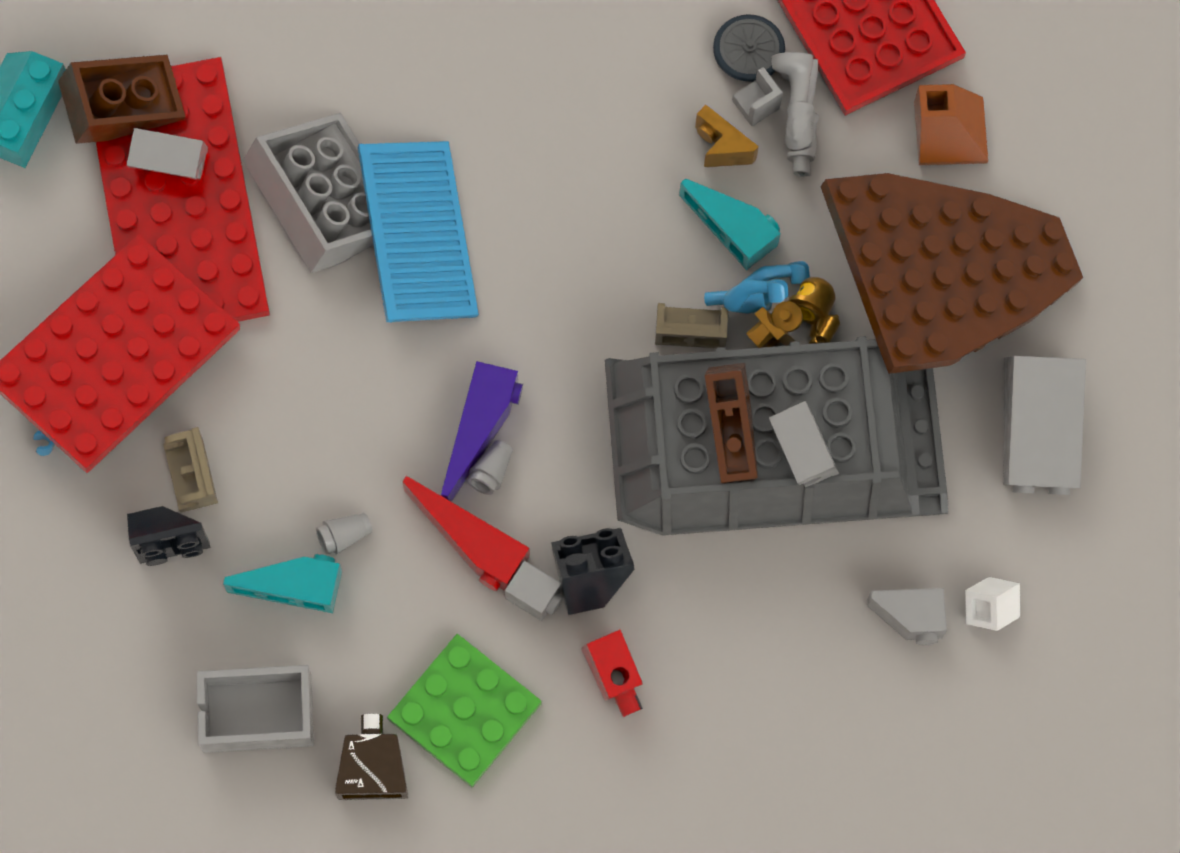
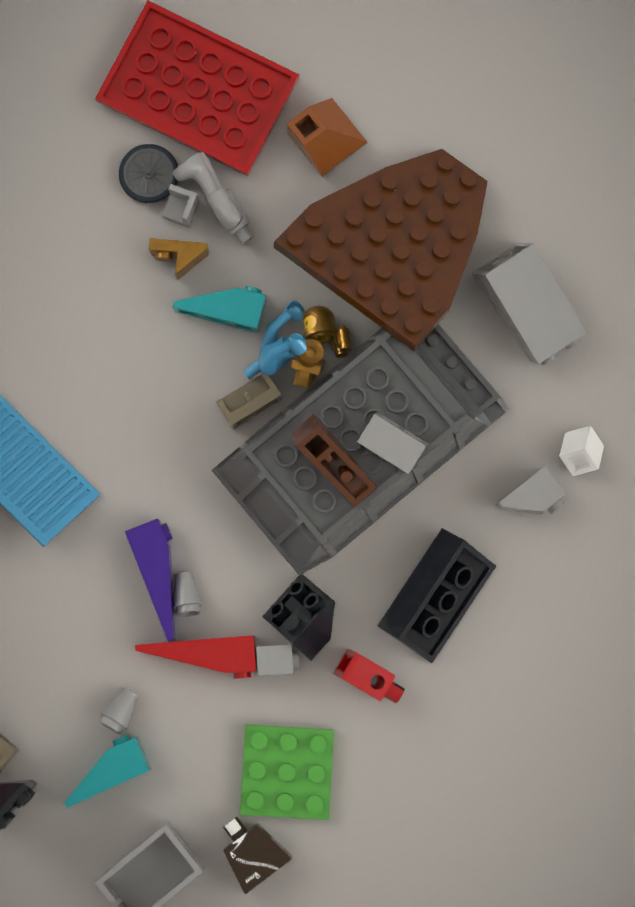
camera: 30 degrees left, 10 degrees up
(742, 642) = (437, 595): none -> black slope

